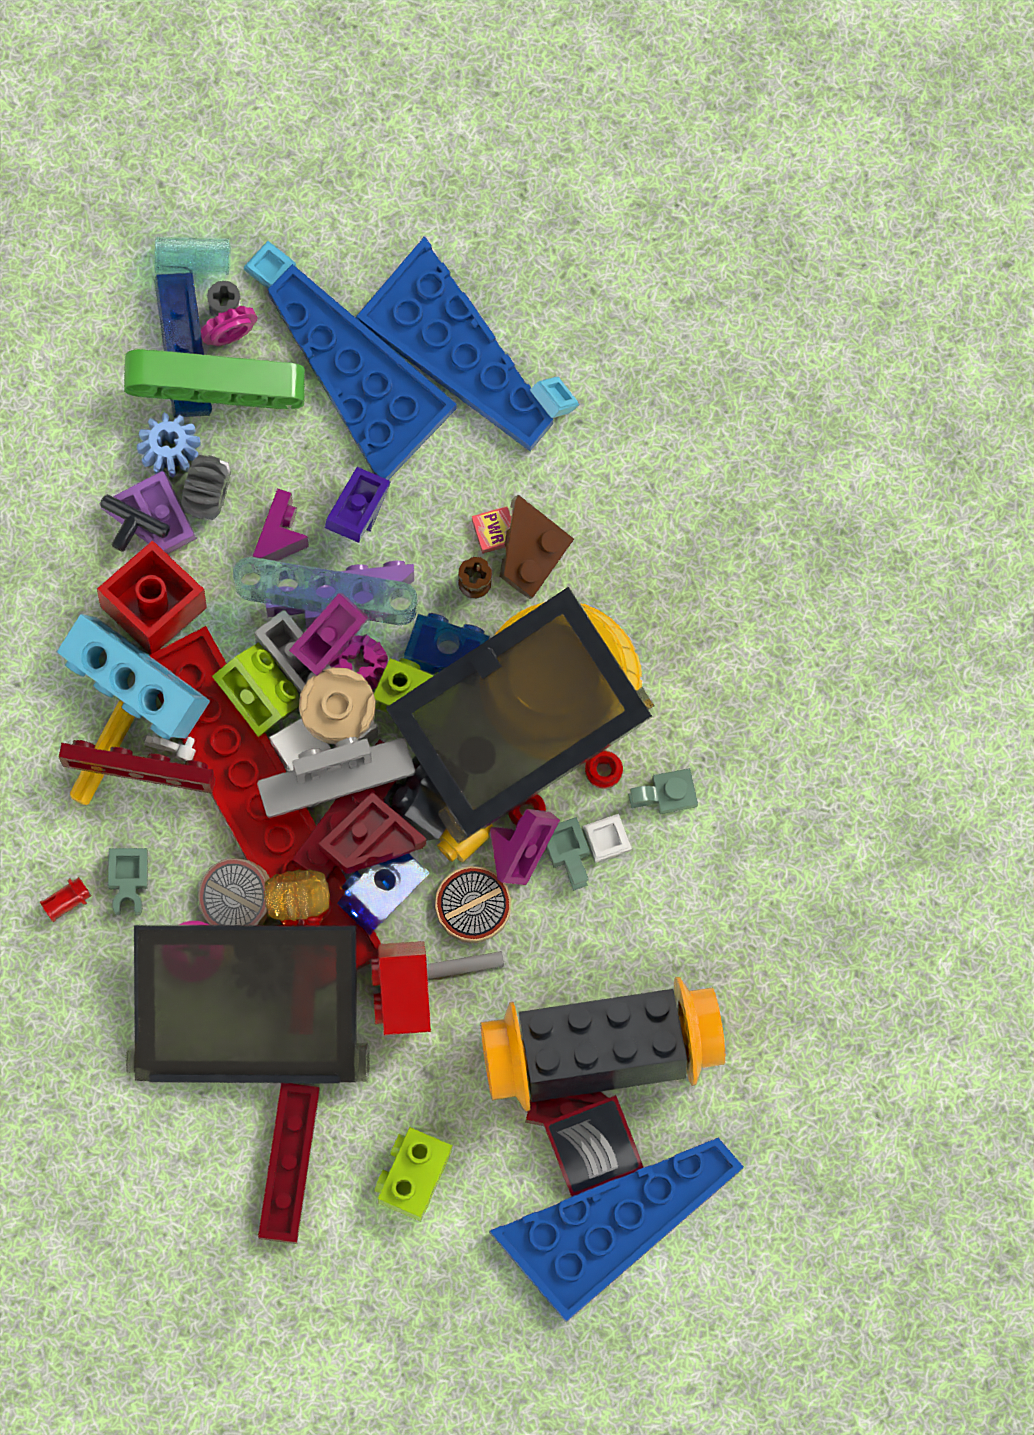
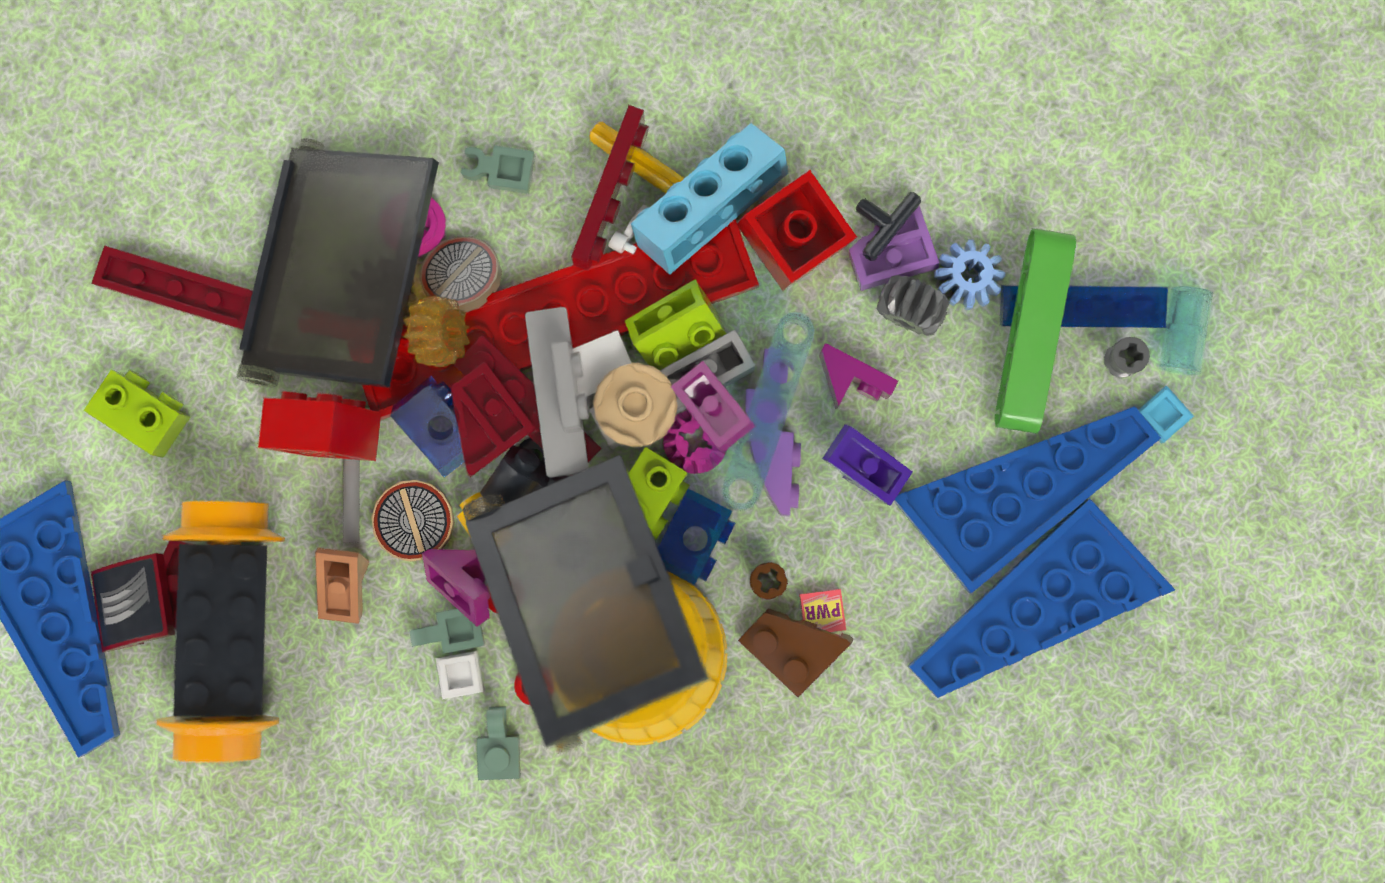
camera: 110 degrees right, 10 degrees up
(65, 899) = (494, 111): red pin -> none
(229, 326) = (1096, 356): dark pink gear -> none
(543, 953) = (340, 584): none -> nougat slope
(554, 397) = (964, 703): medium azure tile -> none

